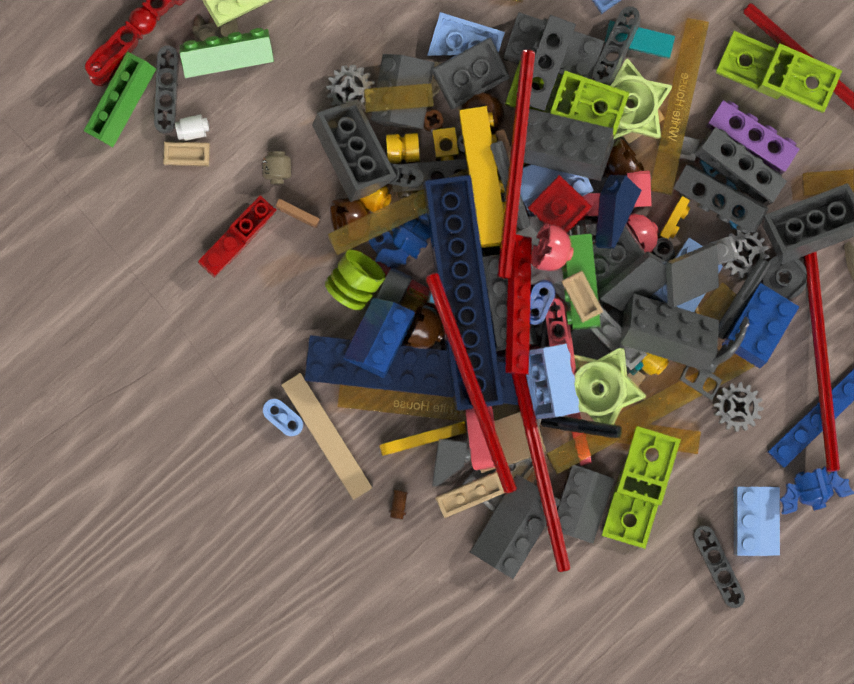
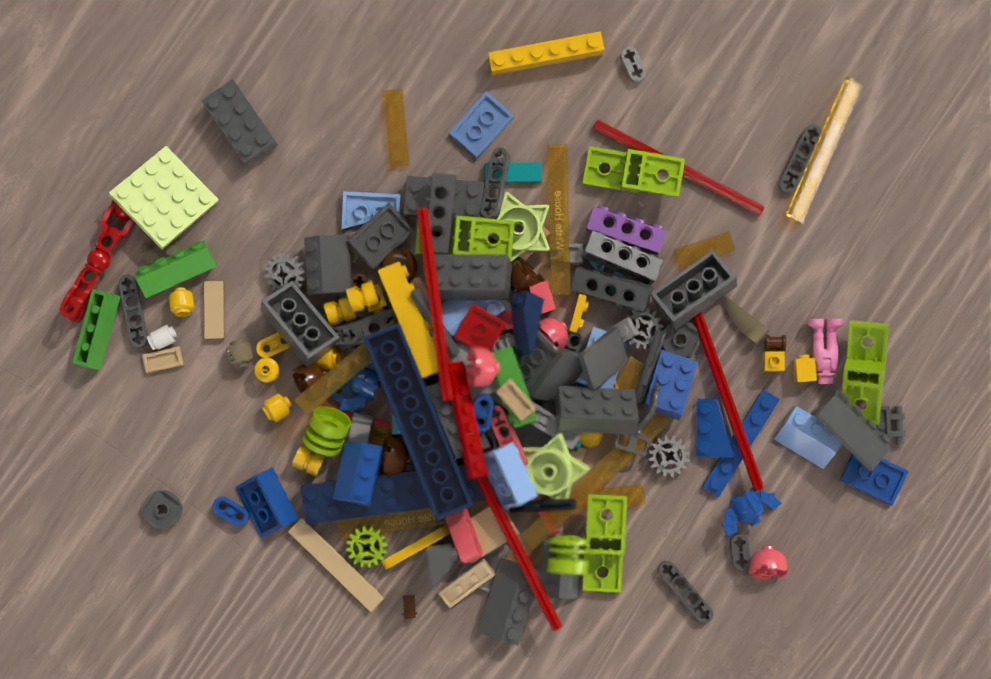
camera: 10 degrees left, 0 degrees up
(131, 323) = (173, 508): none -> dark grey plate
(221, 346) = (231, 511): none -> blue plate
(224, 93) = (181, 302): none -> yellow head
(237, 236) = (222, 418): red slope -> none
(259, 111) = (214, 310): none -> tan tile
(265, 345) = (266, 502): none -> blue slope
(283, 417) = (296, 558): light blue plate -> none
(298, 213) = (266, 386): medium nougat tile -> none
(303, 240) = (276, 407): none -> yellow head
(305, 202) = (271, 375): none -> yellow head
(318, 167) = (275, 344): none -> yellow plate
(325, 309) = (308, 460): none -> yellow wheel
(375, 417) = (372, 551): none -> lime gear
(398, 97) = (325, 271): clear yellow tile -> none
(434, 136) = (362, 296): none -> yellow wheel
(471, 383) = (442, 495): red axle -> none
(597, 488) = (568, 555): none -> lime wheel
(756, 521) = (707, 546): light blue slope -> none
(794, 393) = (711, 430): none -> blue wing
(798, 538) = (735, 551): none -> dark grey beam
(822, 557) = (768, 563): none -> coral cylinder

